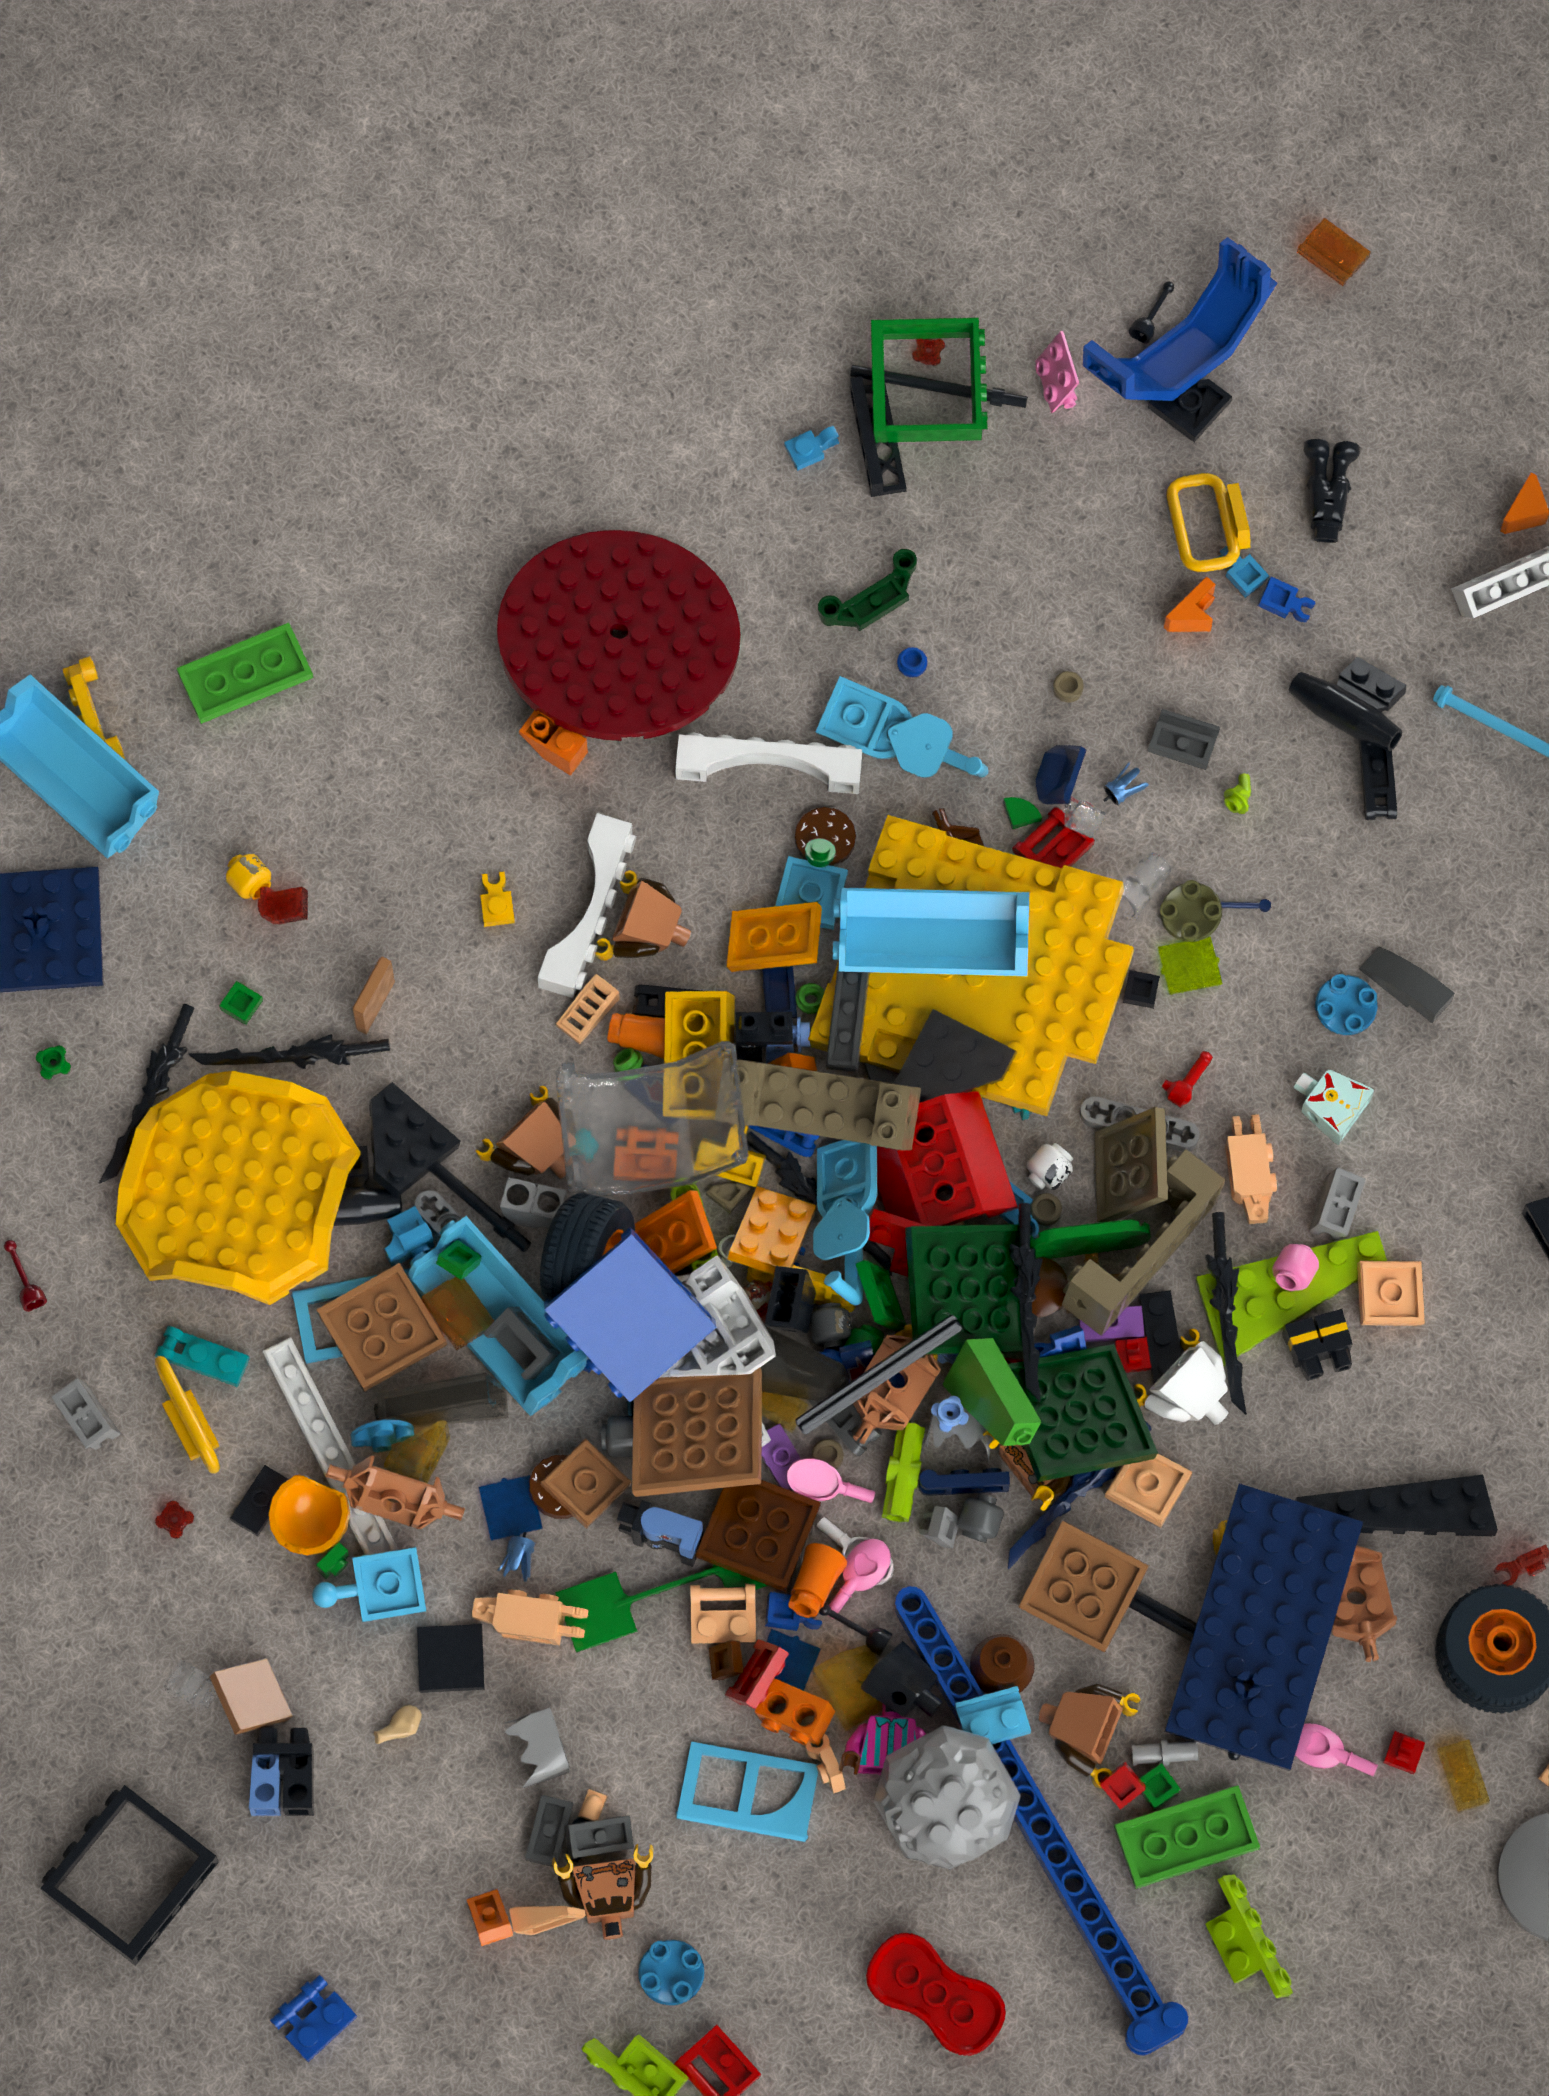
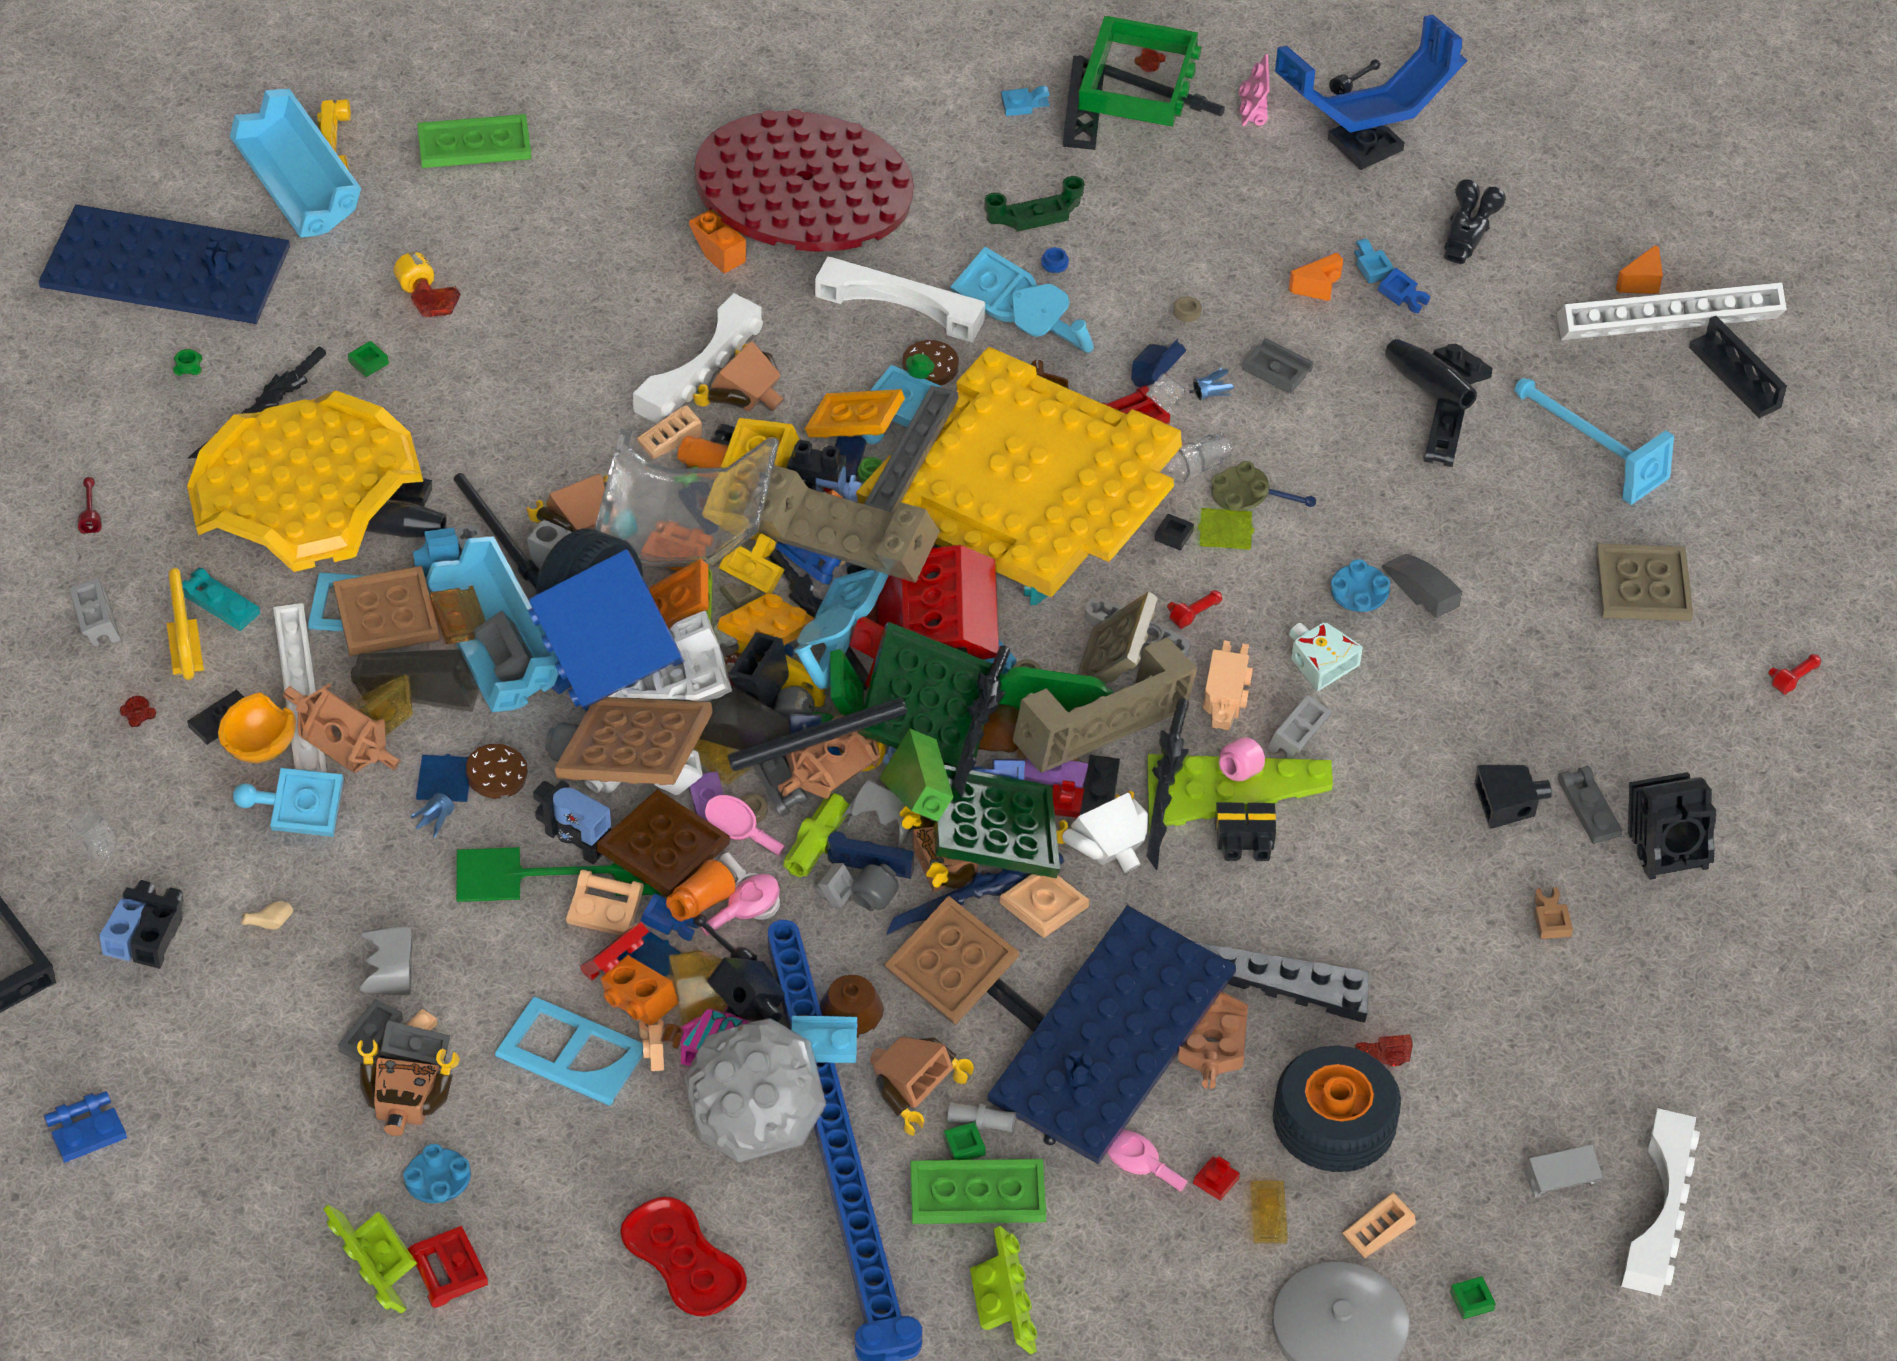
camera: 15 degrees right, 20 degrees down
(250, 1696) = (142, 854): tile -> none
(301, 1055) = (415, 406): black sword -> none
(333, 1562) = (264, 772): green plate -> none
(373, 995) = (483, 372): medium nougat tile -> none
(381, 1434) = (348, 680): dark azure dish -> none
(405, 1140) = (467, 484): black plate -> none
(450, 1658) = (339, 877): black tile -> none
(459, 1259) = (474, 572): green plate -> none
(489, 1917) = (284, 1089): orange slope -> none
(496, 905) = (622, 344): yellow plate -> none
(529, 1617) = (424, 858): light nougat hinge -> none
(537, 1919) = (334, 1093): light nougat slope -> none
(586, 1483) = (517, 769): medium nougat tile -> none
(726, 1660) = (592, 938): reddish brown plate -> none
(932, 931) = (994, 421): medium azure panel -> none
(951, 1404) = (879, 784): light blue plate -> none
(953, 1059) = (982, 523): black plate -> none
(1021, 812) = (1112, 385): green tile -> none
(1049, 1166) = (1041, 638): white head -> none
(1122, 1785) = (929, 1128): red tile -> none
(1232, 517) = (1374, 225): yellow bar -> none
(1237, 798) = (1312, 414): lime plate -> none
(1333, 251) = (1528, 69): clear orange plate -> none
(1390, 1293) = (1327, 809): light nougat plate -> none

